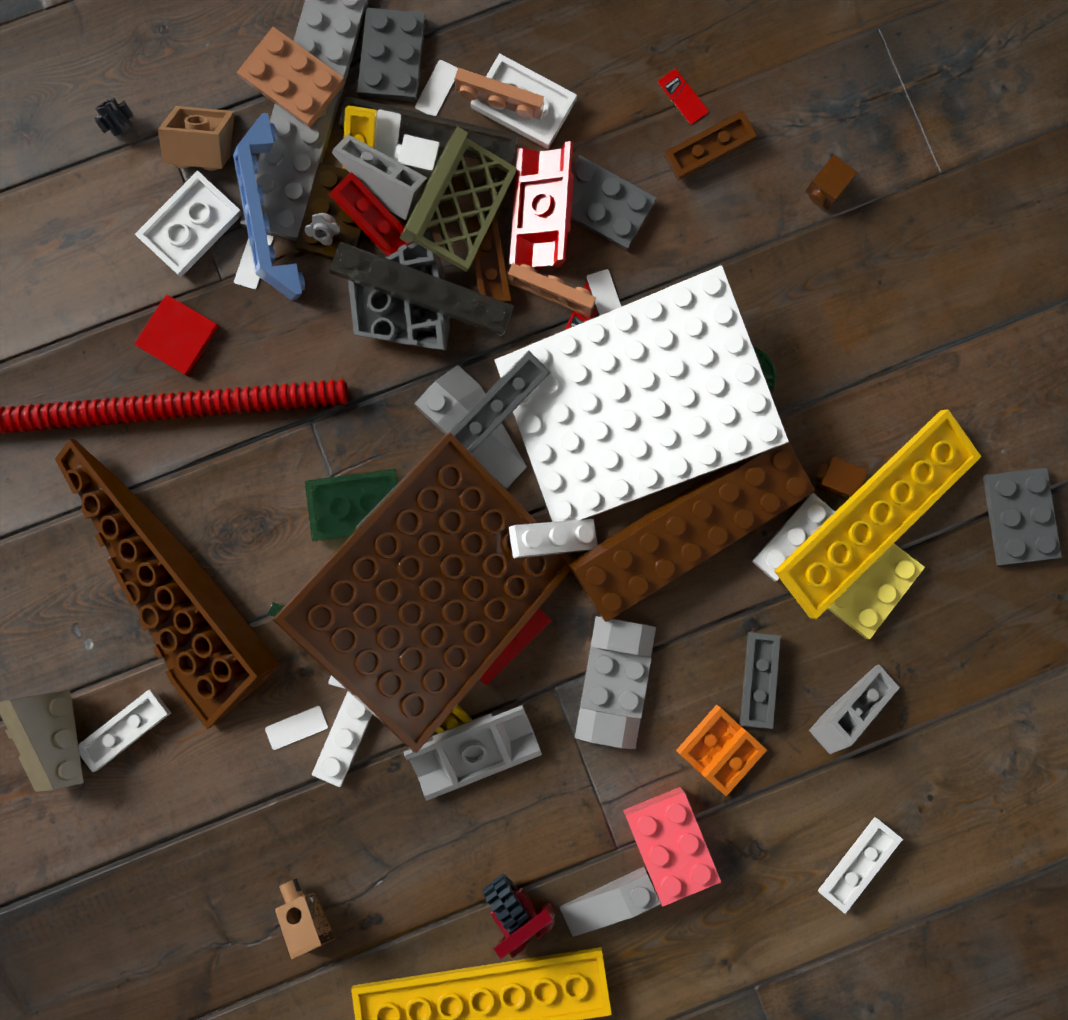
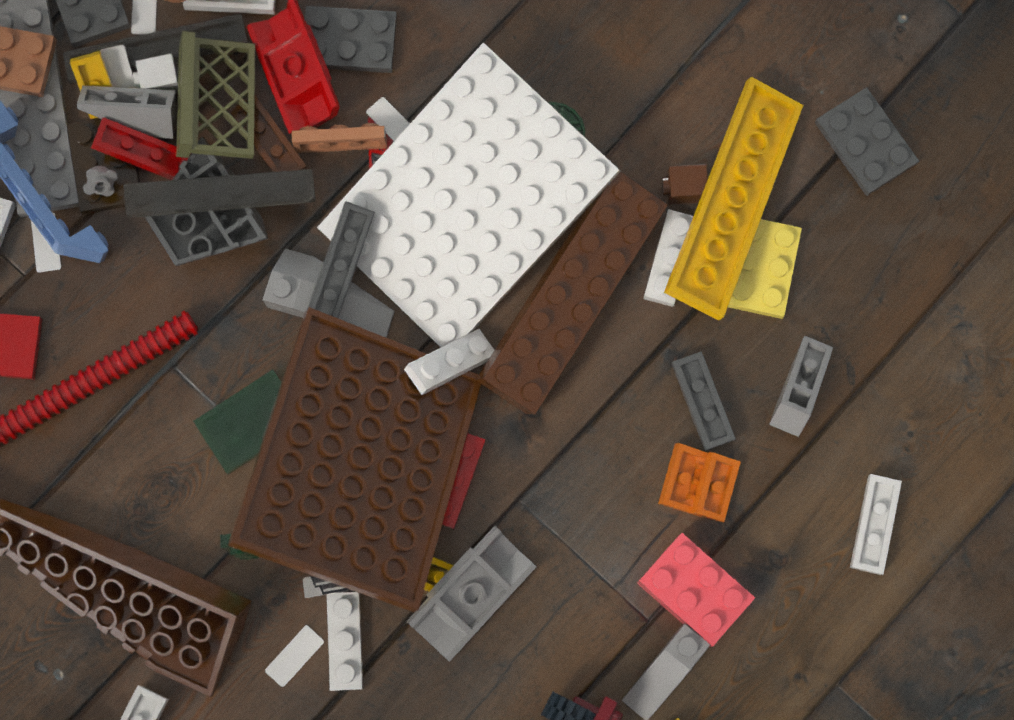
camera: 25 degrees left, 5 degrees down
(615, 683) = (572, 467): light grey piece -> none

